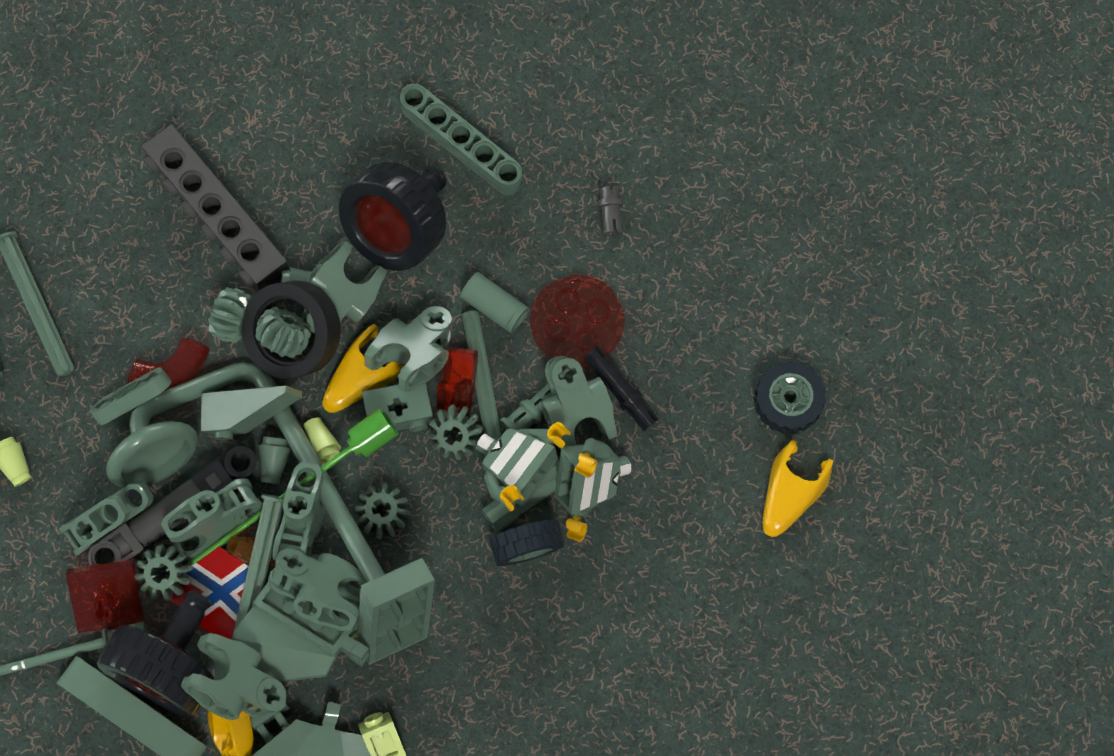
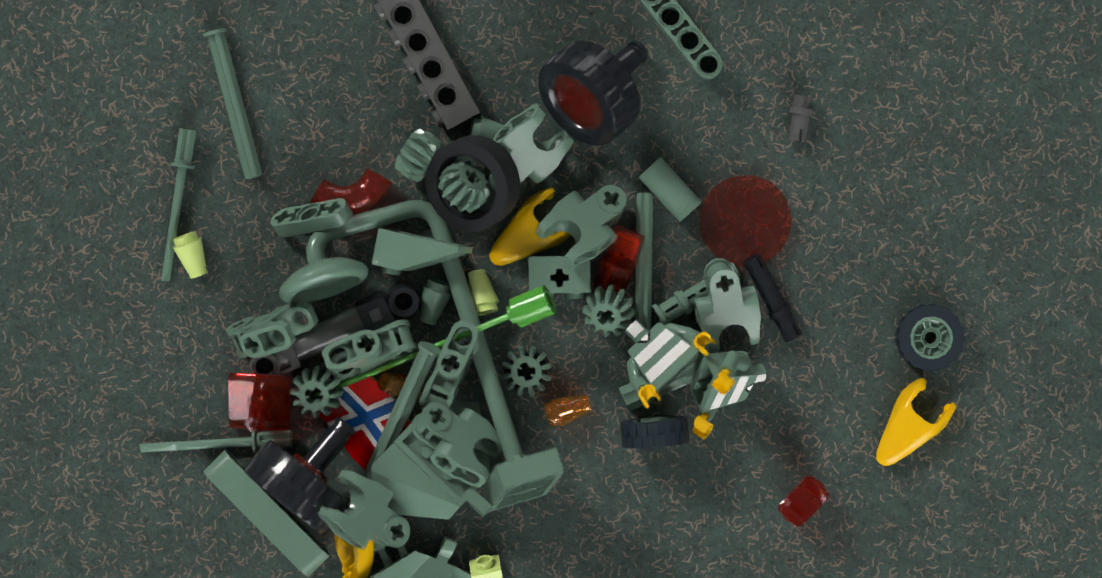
camera: 15 degrees right, 15 degrees up
(431, 543) = (566, 409): none -> clear orange cone
(697, 585) = (803, 501): none -> clear red gear

